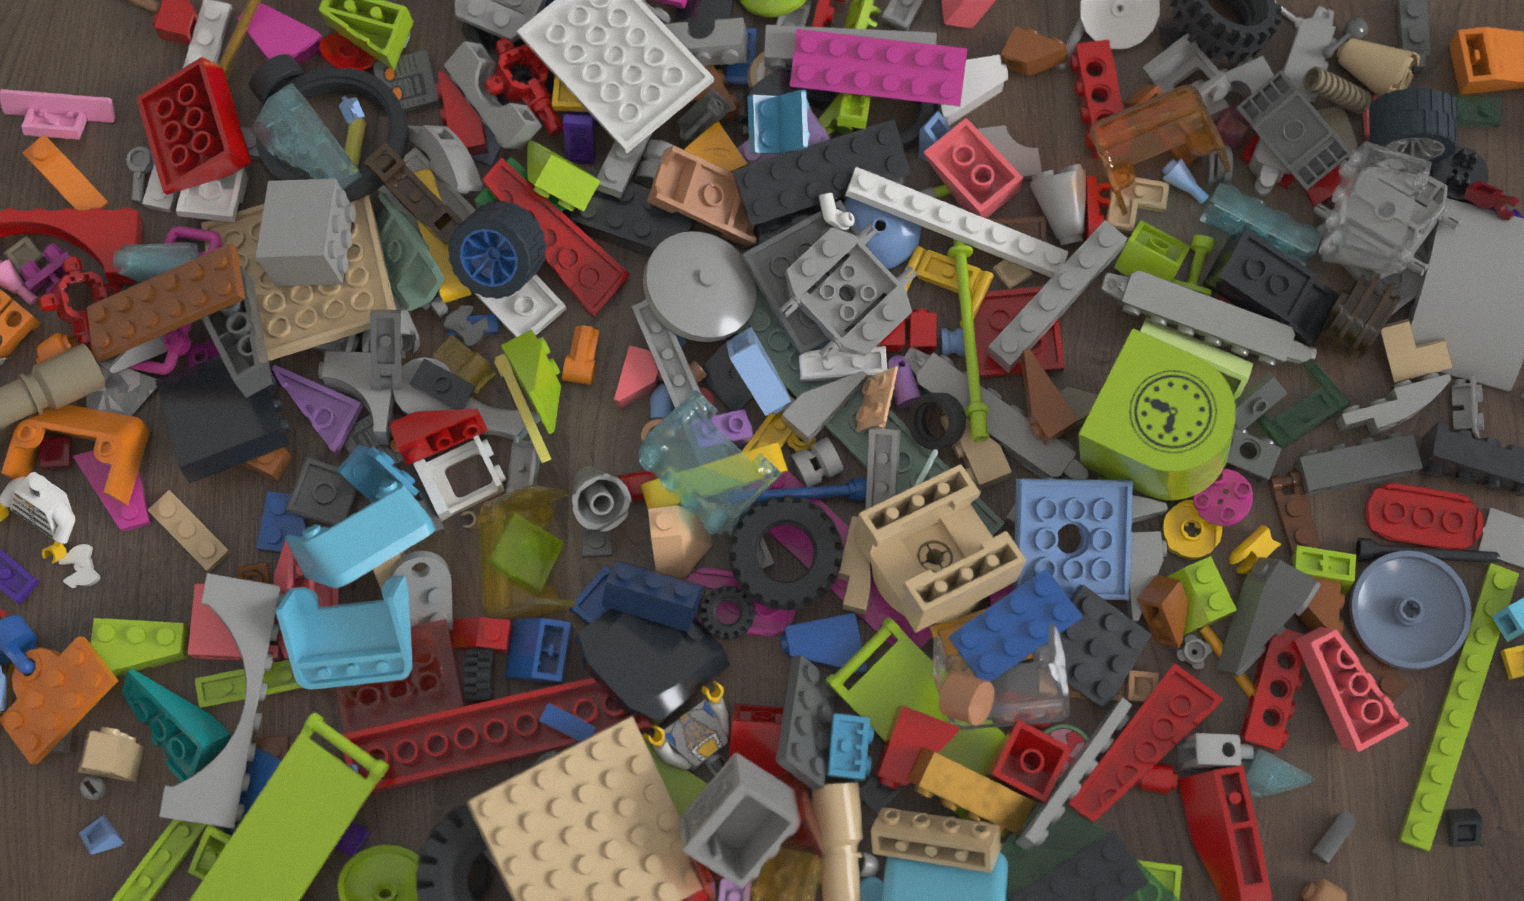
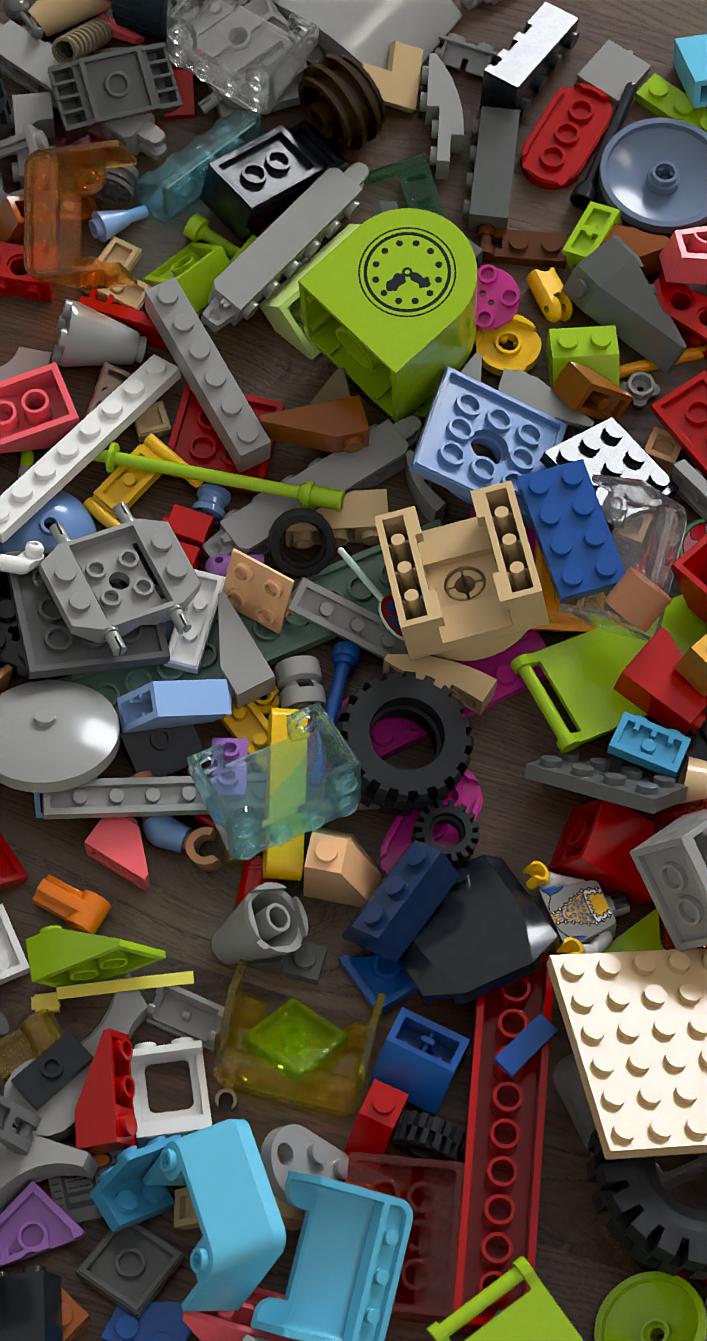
camera: 75 degrees left, 10 degrees down
(825, 642) = (513, 738): blue slope -> none

